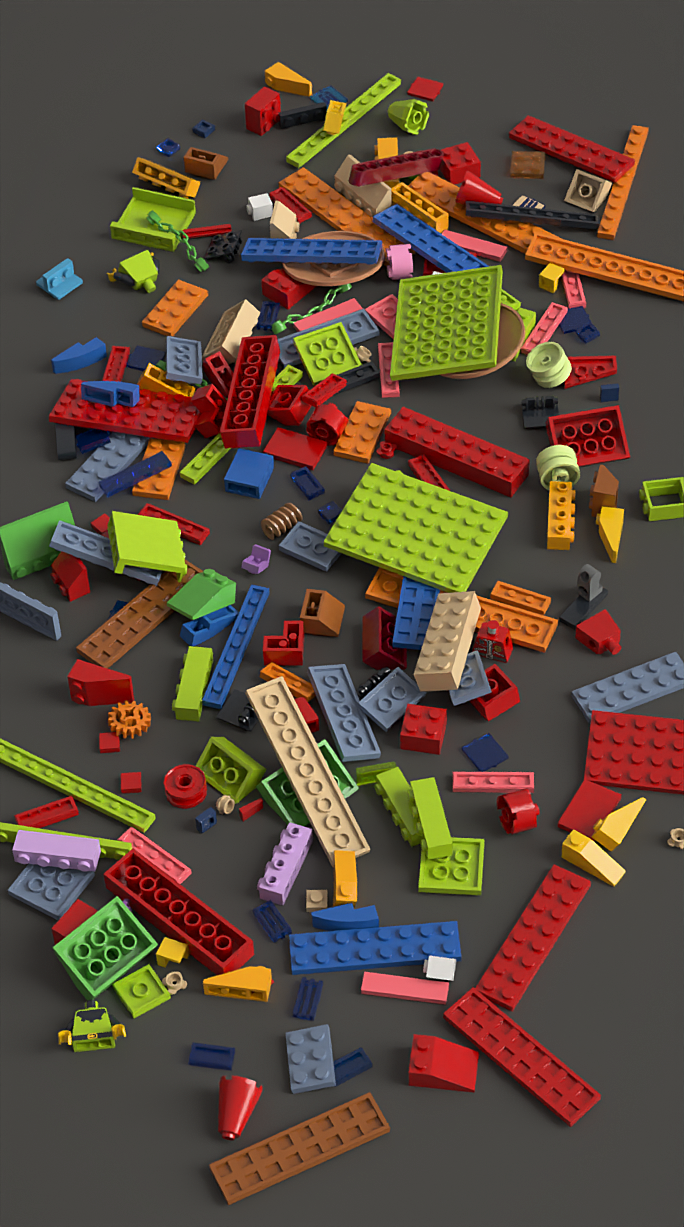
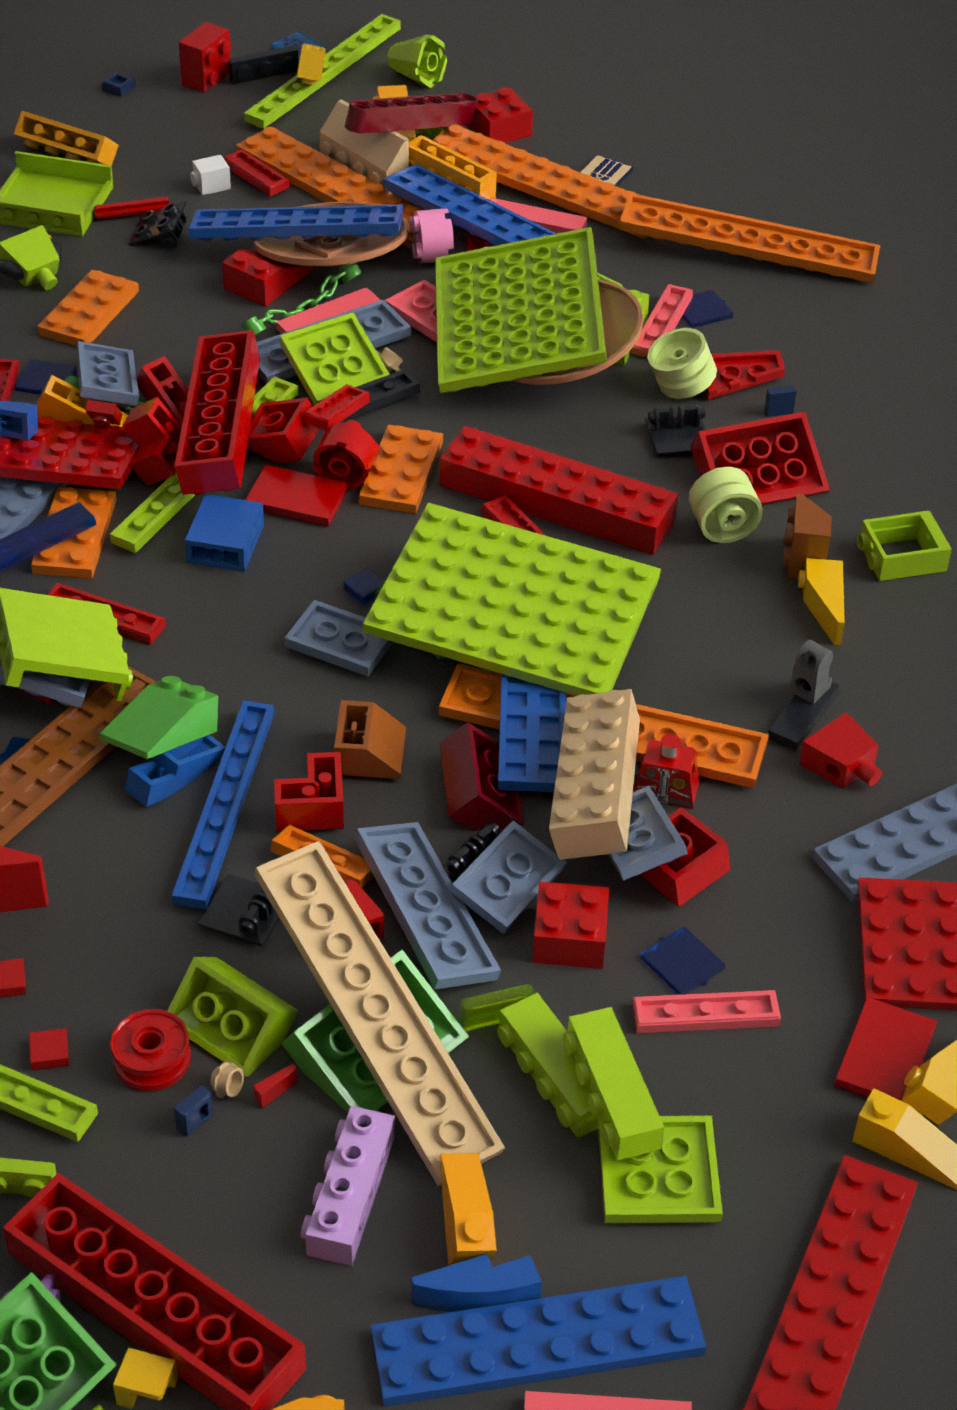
camera: 10 degrees left, 5 degrees down
(129, 719) = (41, 935): orange gear -> none
(156, 855) = (103, 1183): coral tile -> none
(168, 147) = (67, 107): clear blue tile -> none
(179, 390) = (103, 413): none -> red plate
(193, 683) = (153, 868): lime brick -> none
(200, 264) = (125, 248): bright green piece -> none
(204, 163) = (122, 121): dark orange slope -> none
(233, 325) = (180, 329): tan slope -> none
(258, 560) = (251, 662): medium lavender bracket -> none
(266, 325) = (234, 325): clear blue tile -> none
(280, 520) = (284, 600): medium nougat piece -> none
(280, 933) = (353, 1324): clear blue tile -> none
(283, 222) = (248, 187): tan slope -> none
(286, 80) = (242, 24): light orange slope -> none
(307, 483) = (321, 545): clear blue tile -> none
(316, 900) = (415, 1252): tan plate -> none
(386, 450) = (444, 492): red plate -> none
(388, 387) = (434, 403): coral tile -> none
(425, 89) = (444, 32): red piece -> none
(440, 968) = (672, 1374): white brick -> none
(477, 190) = (537, 145): red cone -> none
(517, 811) = (764, 1061): red brick -> none
(520, 598) = (698, 702): orange plate -> none
(527, 165) = (598, 119): clear orange plate -> none
(532, 215) = (618, 173): black plate -> none
(549, 277) = (659, 253): yellow panel -> none
(560, 514) = (739, 577): light orange brick -> none
(572, 148) = (660, 97): red plate -> none
(573, 289) = (693, 267): coral tile -> none
(587, 191) = (692, 145): tan slope -> none
(587, 332) = (728, 323): clear blue tile -> none
(620, 189) = (739, 139): orange plate -> none

